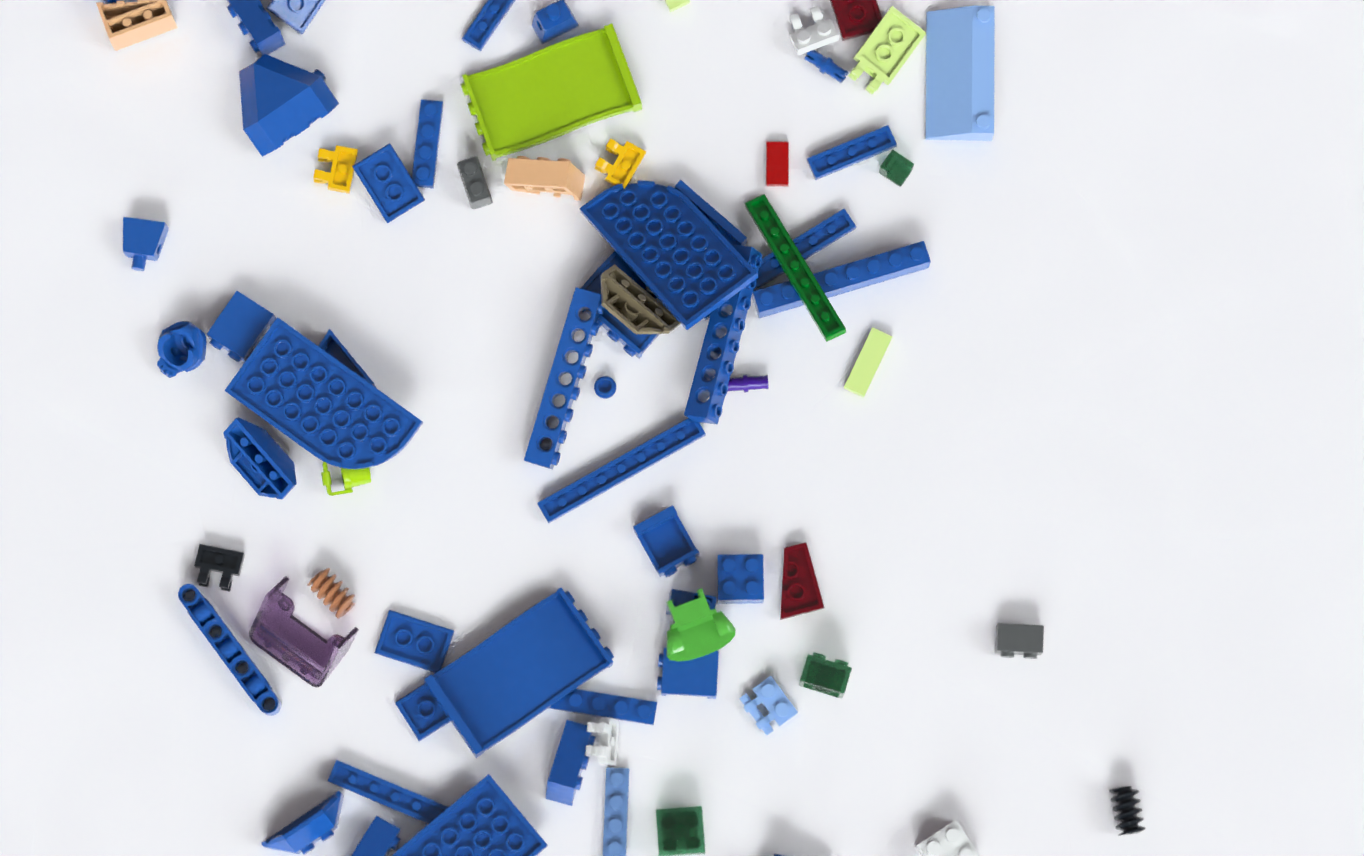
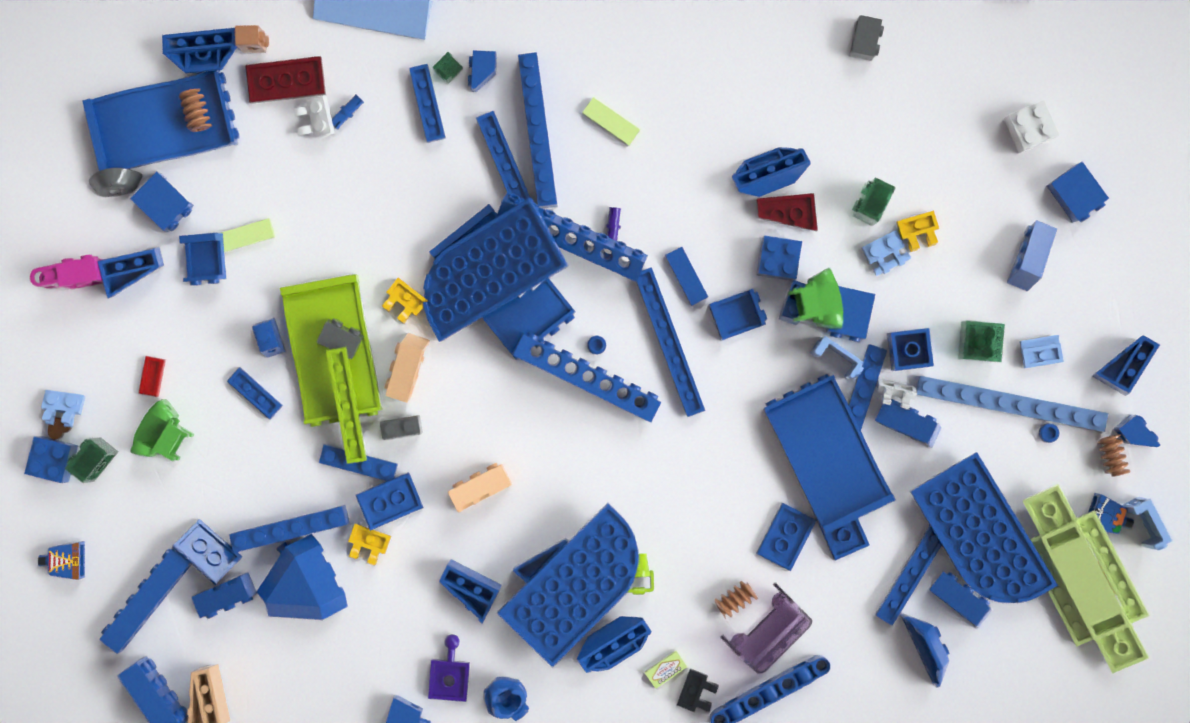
camera: 80 degrees left, 10 degrees up
(206, 291) = (457, 669): none -> dark purple plate
(239, 527) = (665, 669): none -> tile
(240, 326) = (494, 645): blue panel -> none
(302, 289) = (471, 588): none -> blue wedge
(341, 79) = (289, 528): none -> blue brick
(419, 279) = (479, 487): none -> light nougat wedge
(490, 115) = (346, 404): none -> lime plate
(565, 97) = (336, 336): none -> dark grey brick
(634, 305) = (537, 307): dark tan wedge -> none
(647, 643) = (824, 342): none -> light blue panel
(657, 748) = (910, 349): none -> blue brick
(702, 477) = (686, 276): none -> blue tile
(777, 164) = (426, 168): red tile -> none
(795, 268) = (524, 166): green tile -> none
(807, 737) = (918, 225): none -> yellow plate
(840, 551) = (771, 171): none -> blue wedge
(887, 49) = (341, 57): yellowish green tile -> none
(901, 207) = (483, 68): none -> blue slope

